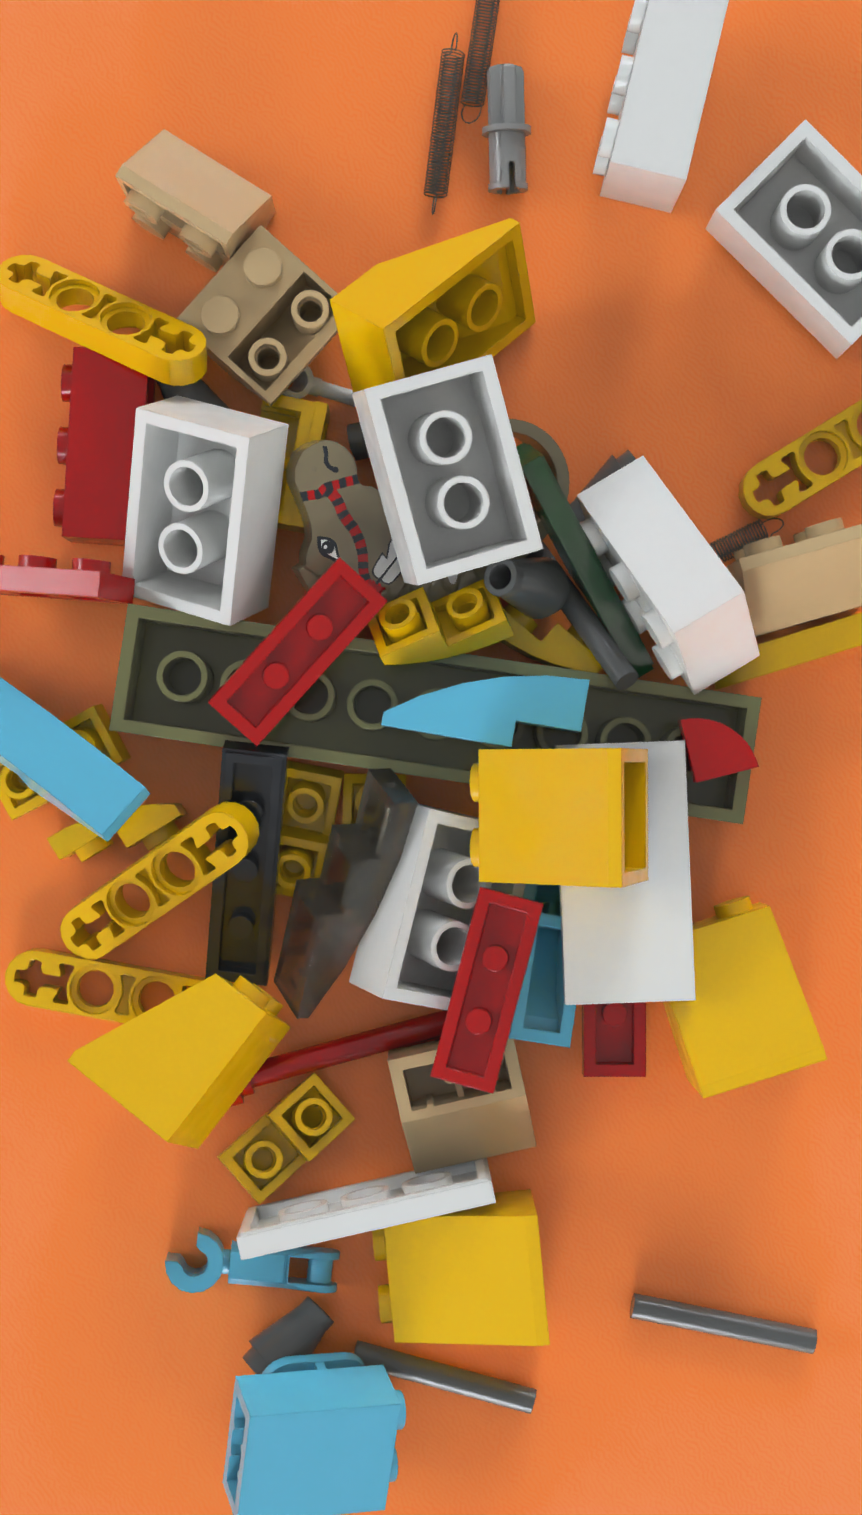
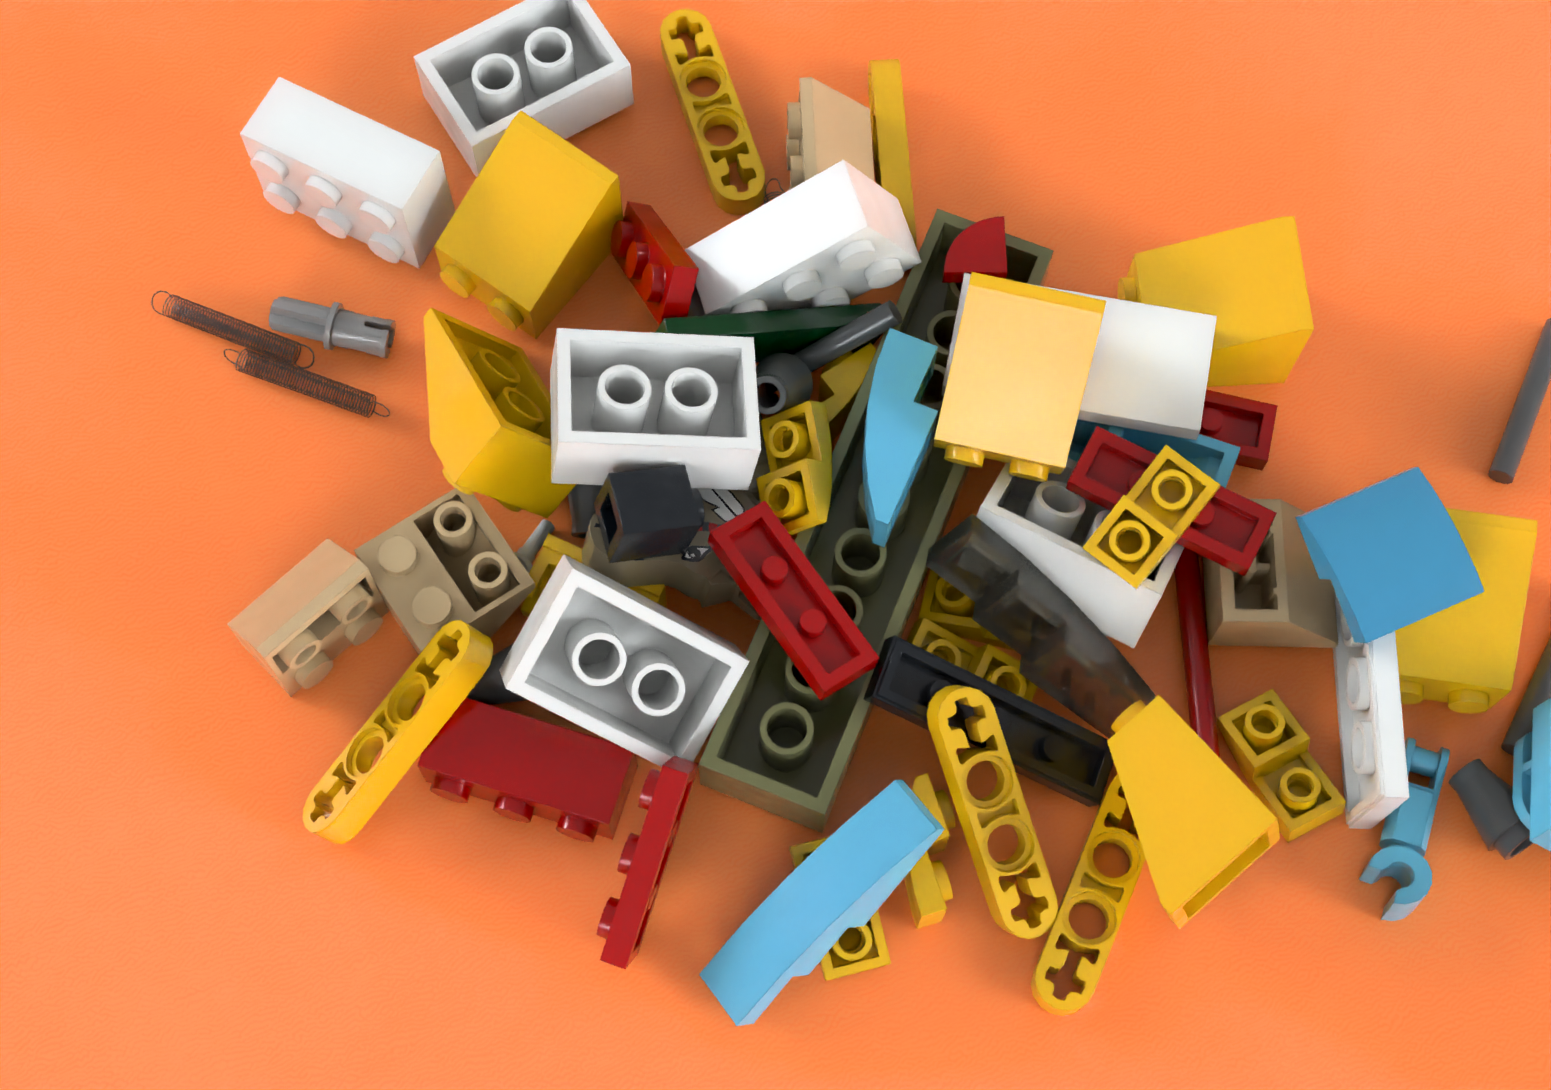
camera: 80 degrees left, 20 degrees down
(340, 495) = (648, 513): none -> black brick
(454, 974) = (1151, 517): none -> yellow slope
(469, 1207) = (1390, 554): none -> dark azure slope
(628, 428) = (654, 262): none -> red plate
(648, 293) = (530, 227): none -> yellow slope

